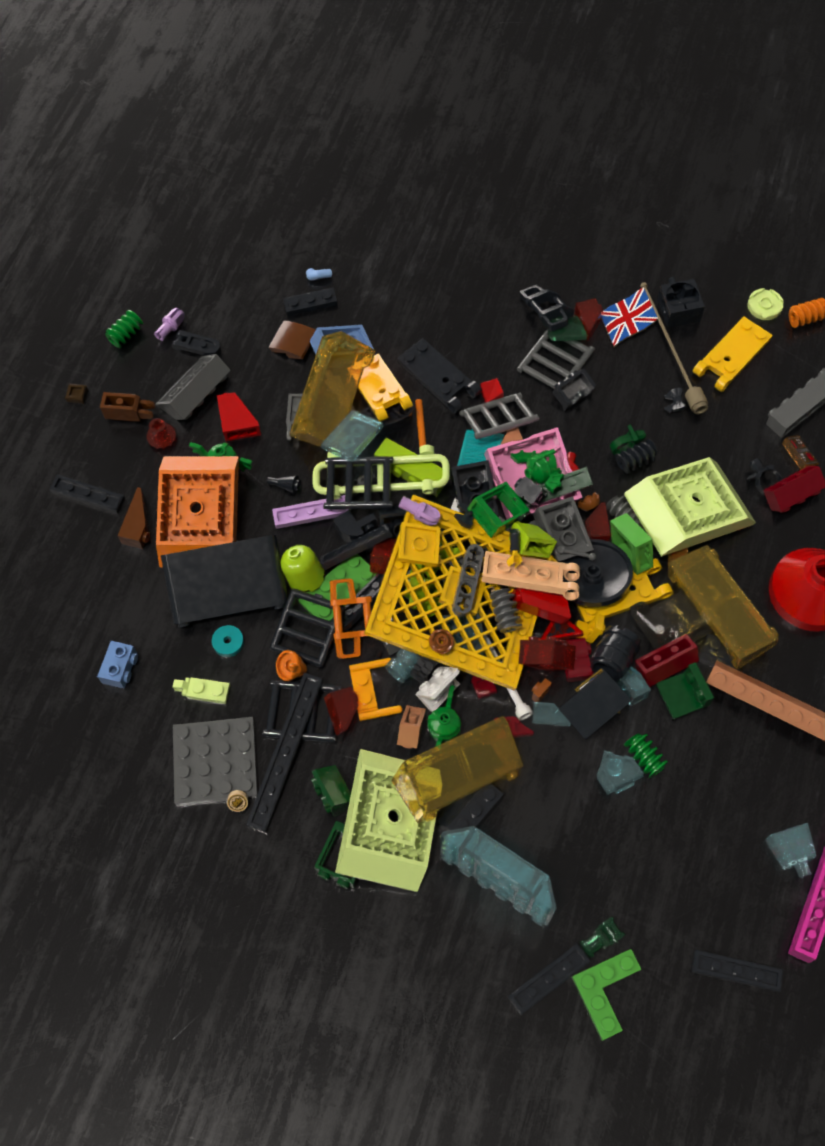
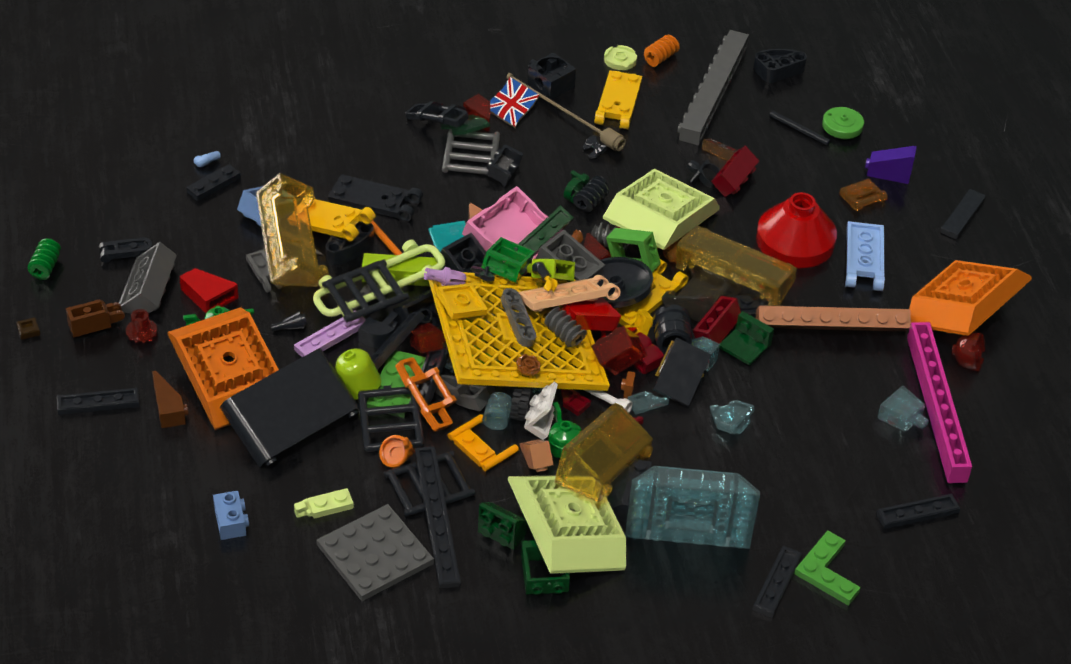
camera: 35 degrees left, 20 degrees down
(170, 323) = (87, 241): lavender arm -> none
(227, 649) = (321, 459): teal piece -> none
(237, 801) = (419, 569): tile -> none
(292, 339) = (218, 214): reddish brown slope -> none
(341, 708) = (466, 463): clear red slope -> none
(352, 435) = (335, 258): clear light blue tile -> none
(491, 390) = (432, 191): red slope -> none
(496, 428) = (449, 197): dark grey bar -> none
(530, 491) = (525, 236): black brick -> none
(539, 469) = (520, 222): green helmet -> none
(560, 549) = (579, 272): dark grey hinge -> none
(605, 935) = (800, 531): clear green connector -> none
(645, 754) = (745, 394): green piece -> none

